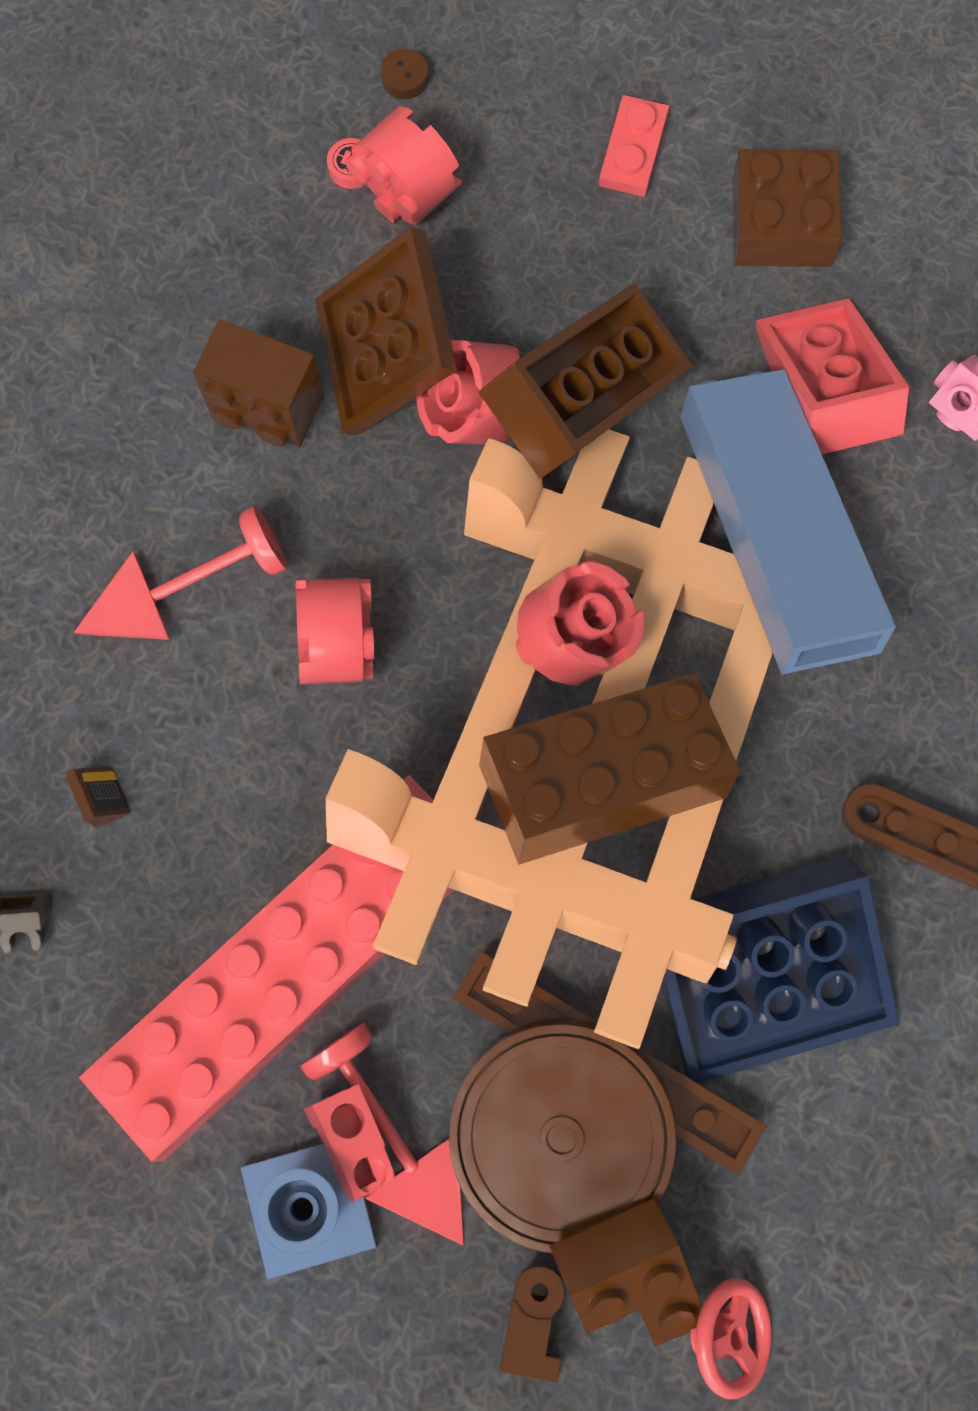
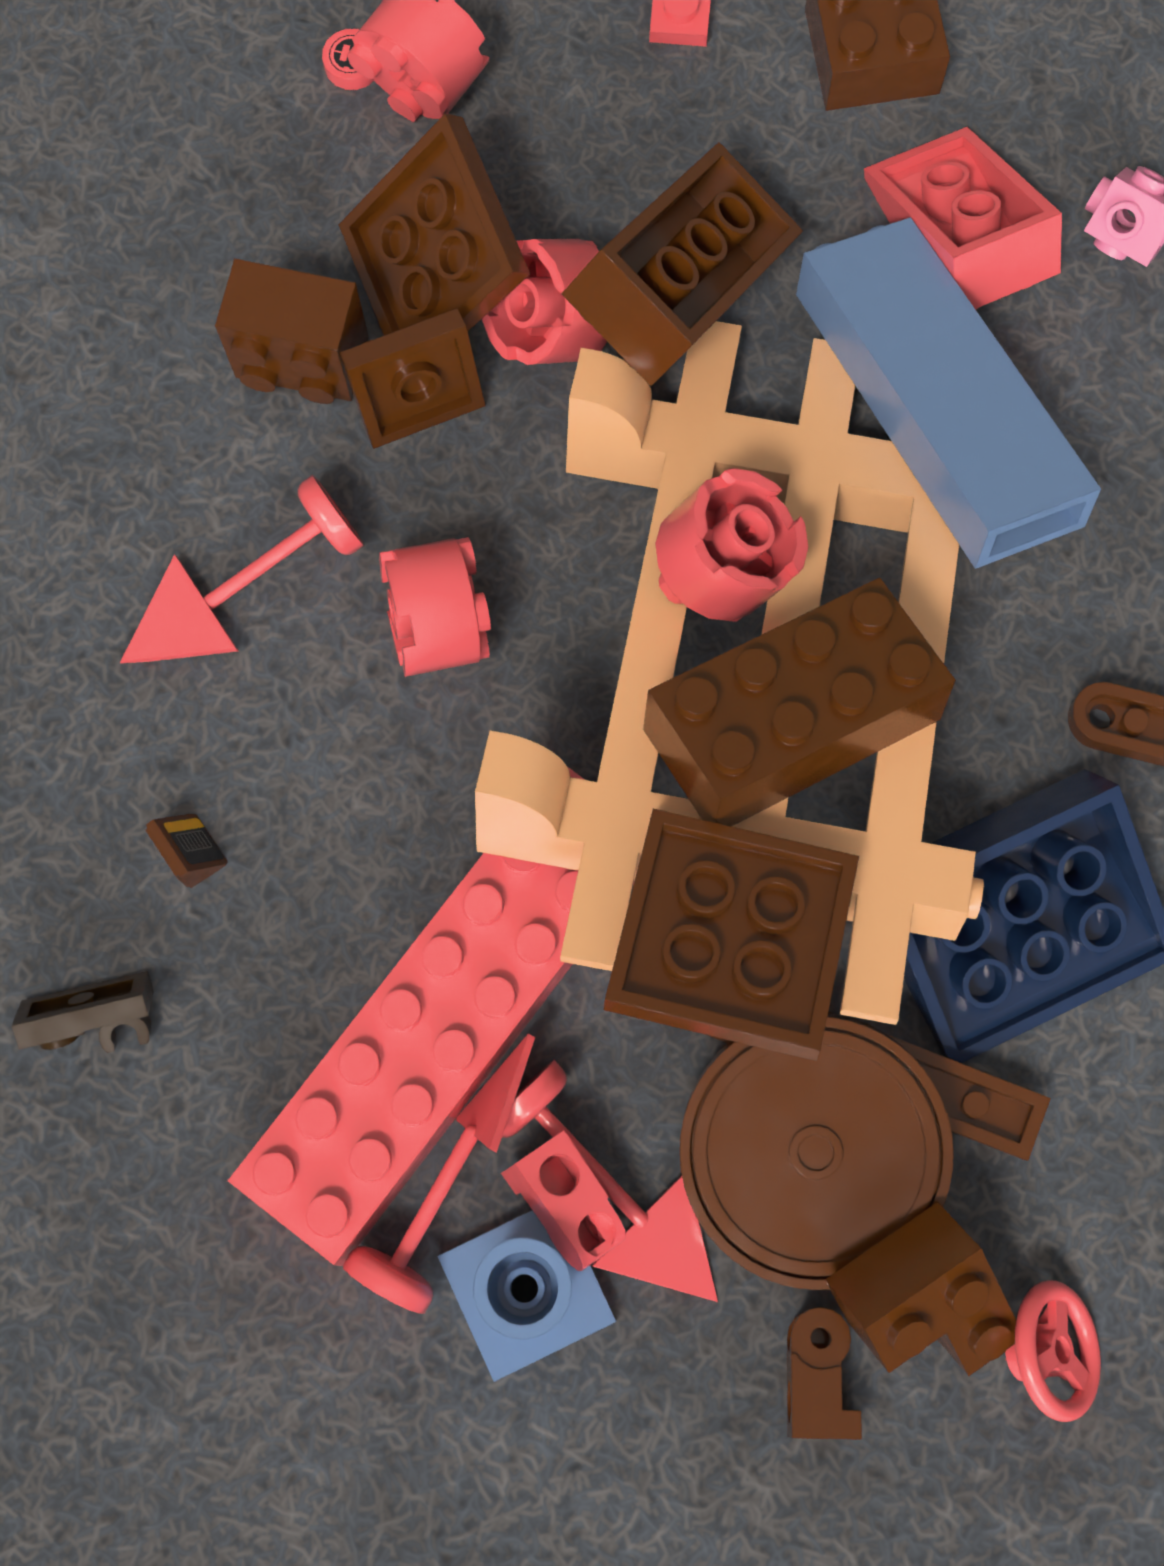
camera: 10 degrees left, 0 degrees up
(197, 1177) = (483, 1121): none -> coral piece
(350, 438) = (414, 378): none -> reddish brown plate
(515, 952) = (733, 934): none -> reddish brown plate

